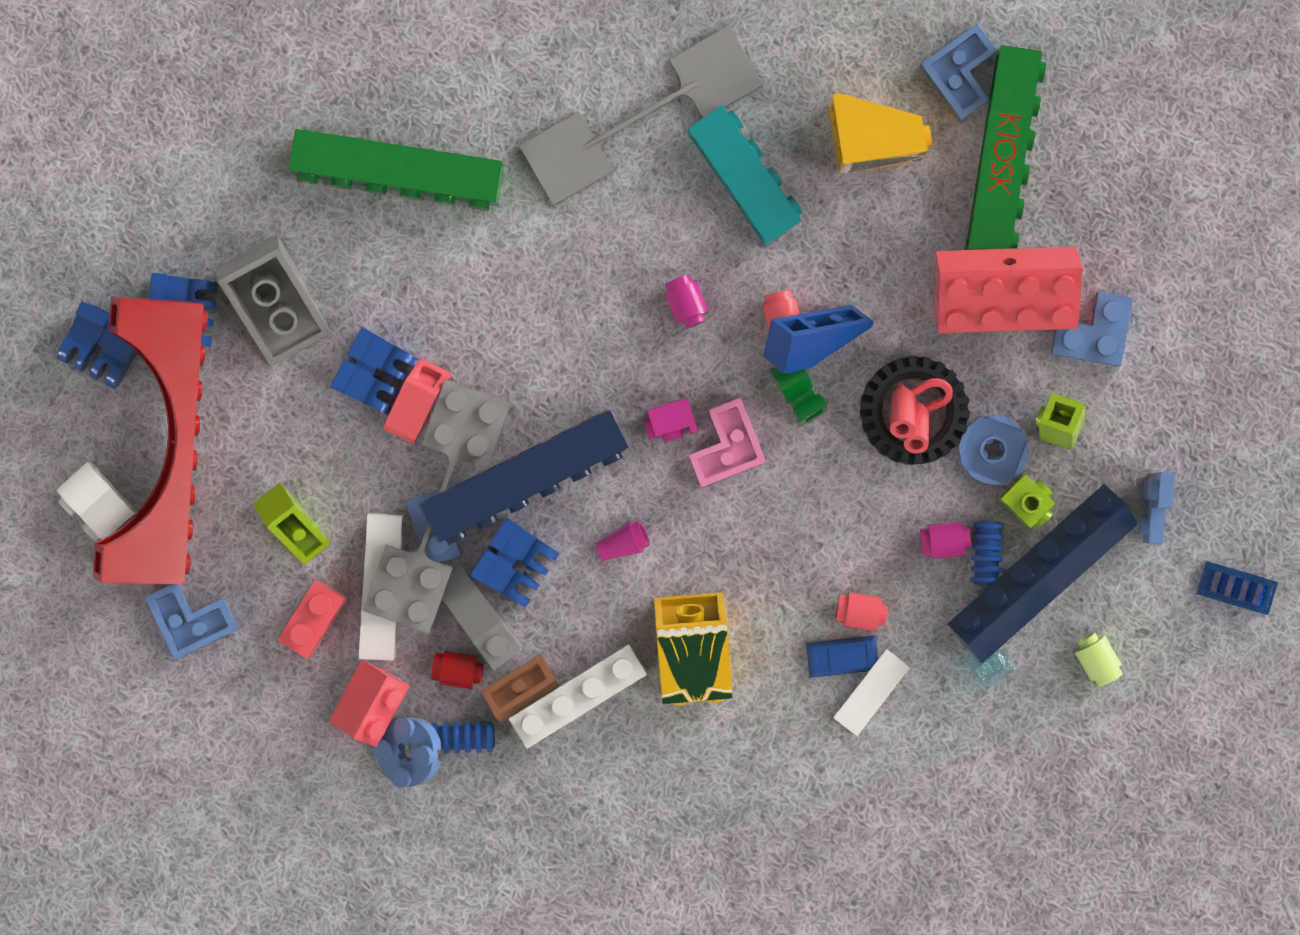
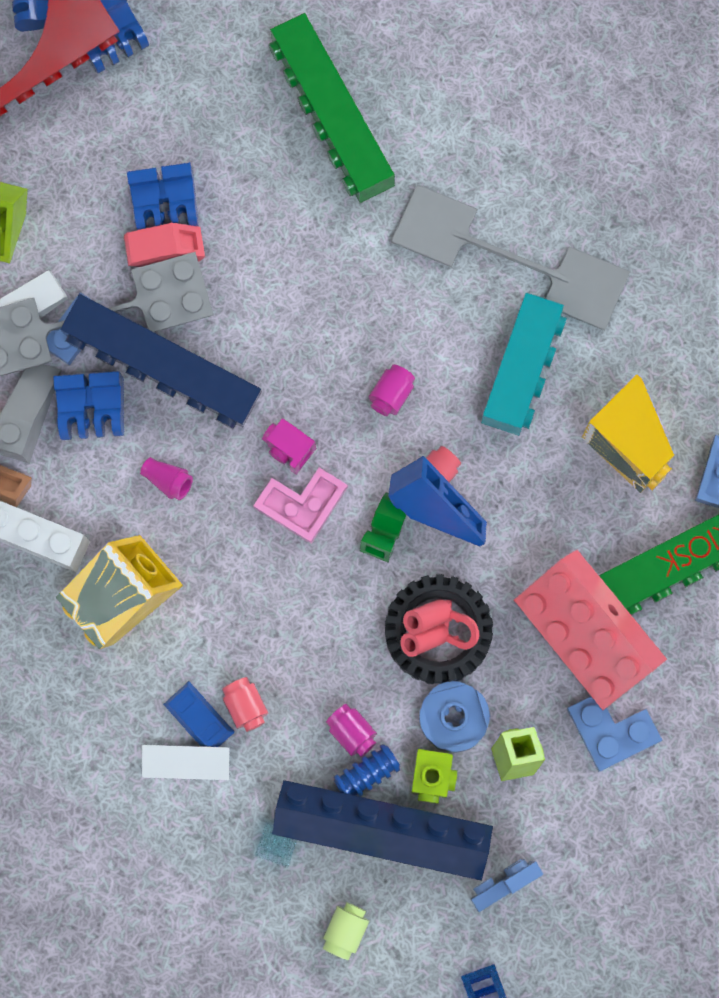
camera: 55 degrees right, 10 degrees down
(272, 300) = (164, 90): light grey slope -> none

